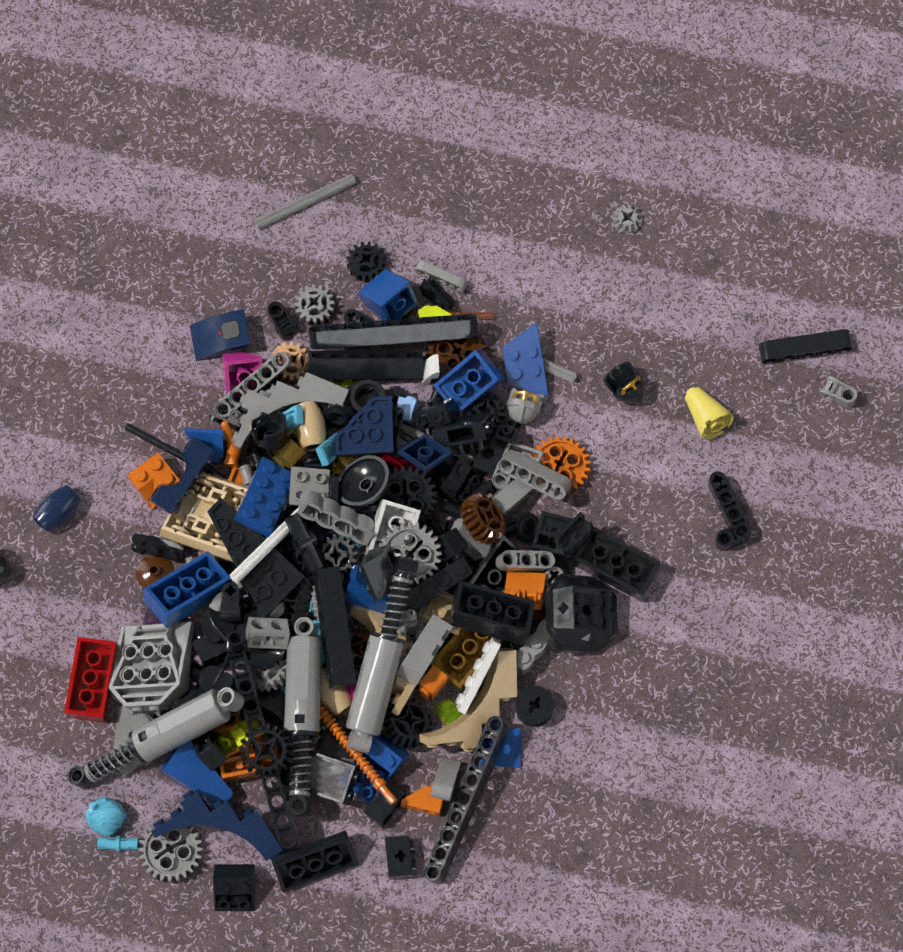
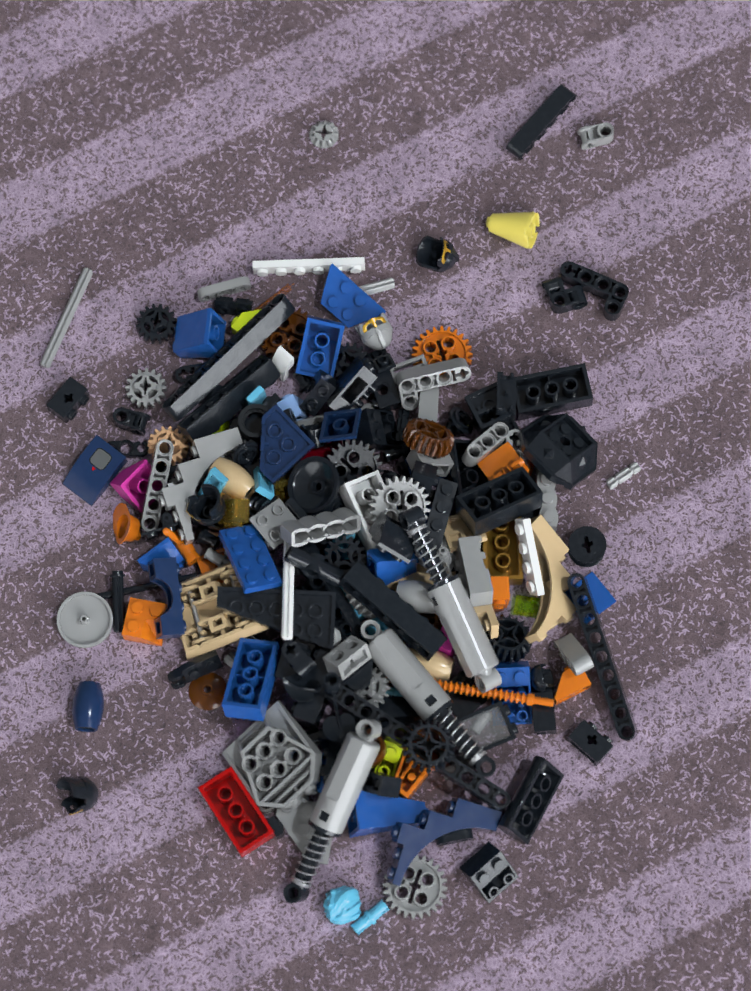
camera: 40 degrees left, 0 degrees up
(110, 716) = (277, 827): none -> black tile
(113, 442) = (85, 619): none -> light grey piece
(150, 446) = (118, 600): none -> black axle
(205, 396) = (125, 525): none -> orange piece
(233, 839) = (455, 837): none -> black beam
(255, 258) = (70, 390): none -> black brick
(263, 345) = (134, 453): none -> black piece
(361, 625) = (415, 593): none -> light grey piece
(386, 379) = (256, 396): none -> medium azure tile
(407, 777) = (541, 679): none -> black hair
(526, 316) = (300, 266): none -> white plate
(614, 676) = (623, 475): none -> light grey axle
(702, 505) = (572, 298): none -> black piece

